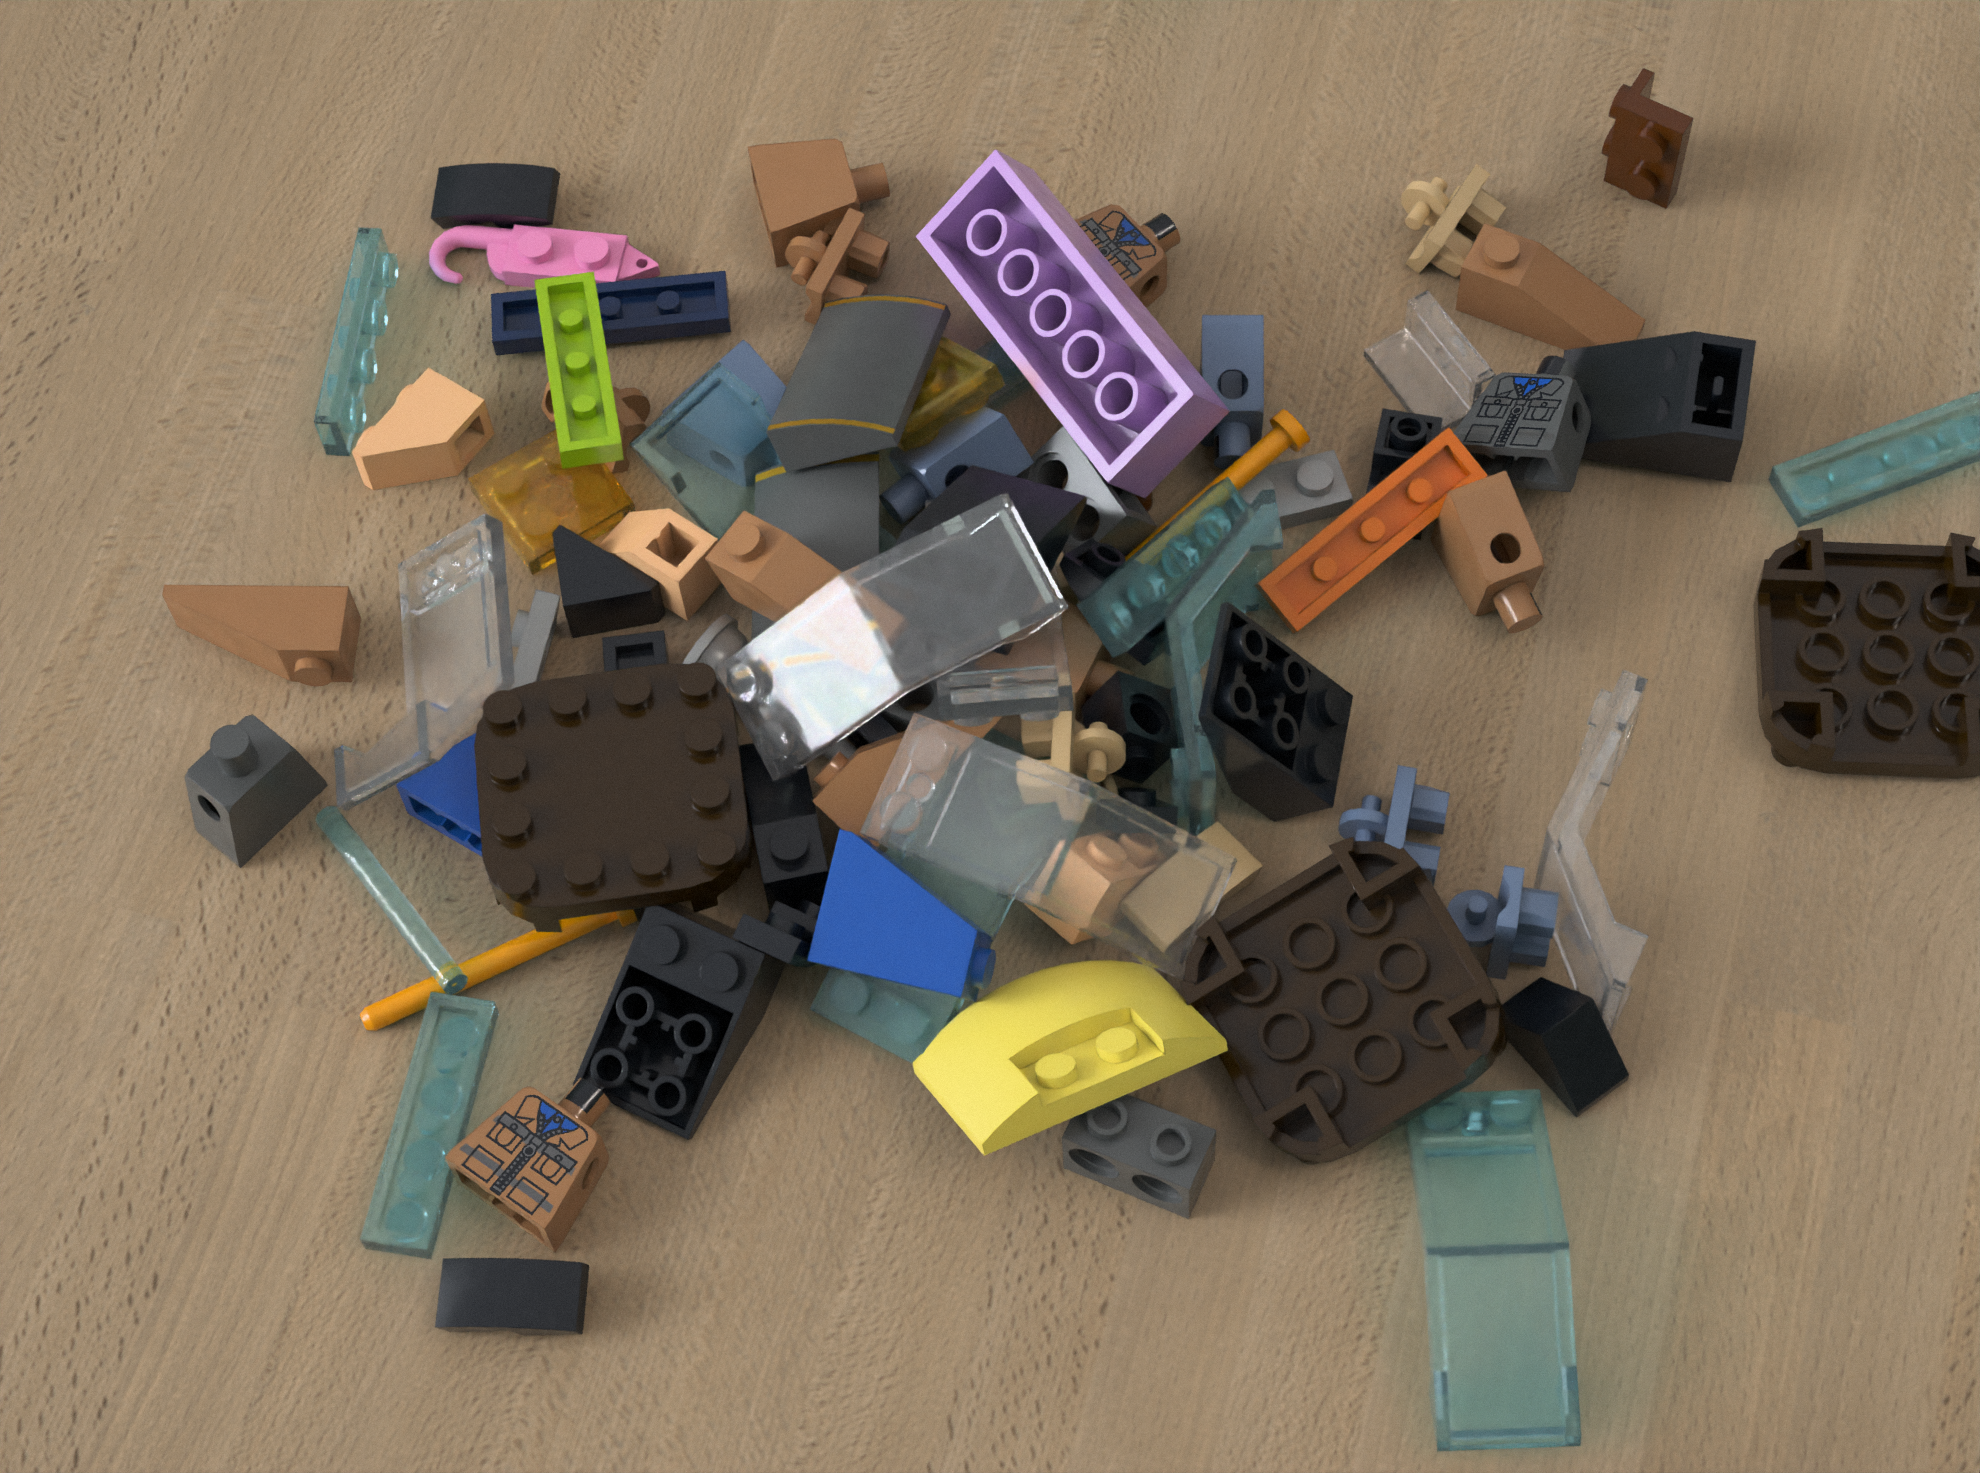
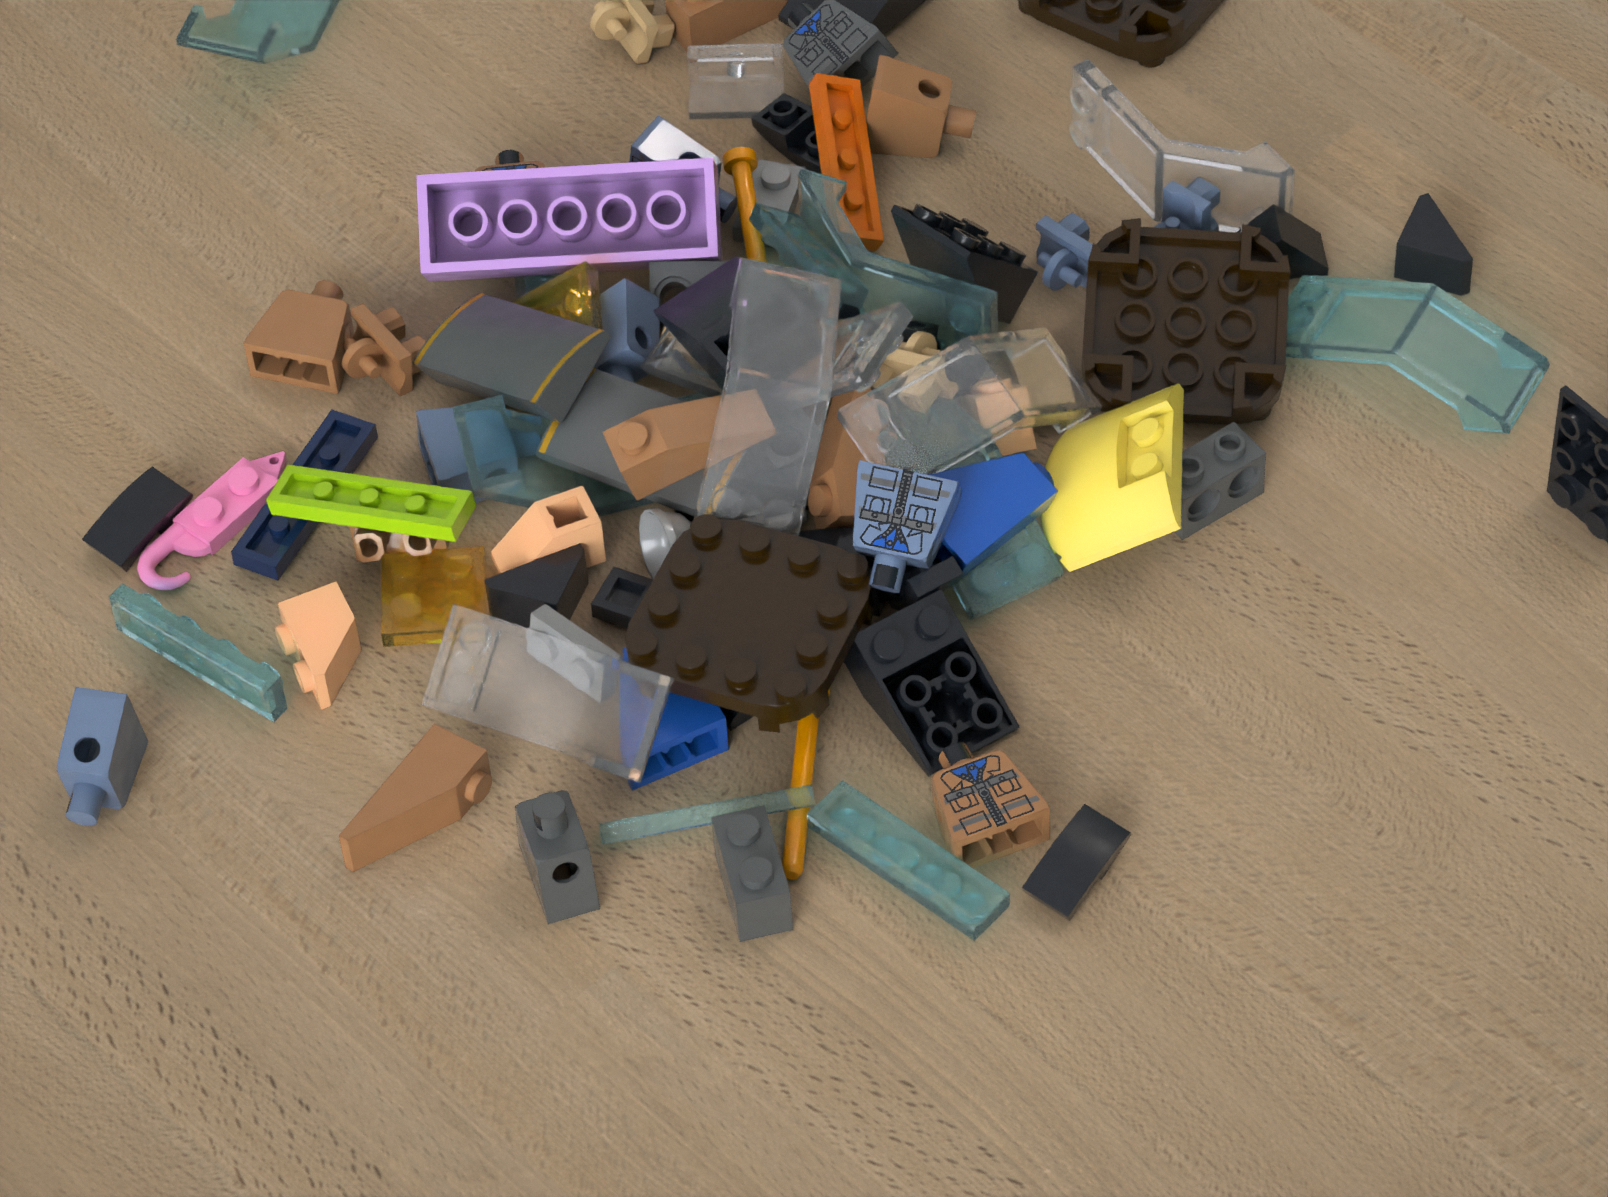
camera: 60 degrees left, 10 degrees down
(170, 334) = (99, 753): none -> sand blue torso
(324, 981) = (752, 873): none -> dark grey brick
(789, 856) = (900, 520): none -> sand blue torso
(1671, 1207) = (1432, 250): none -> black slope

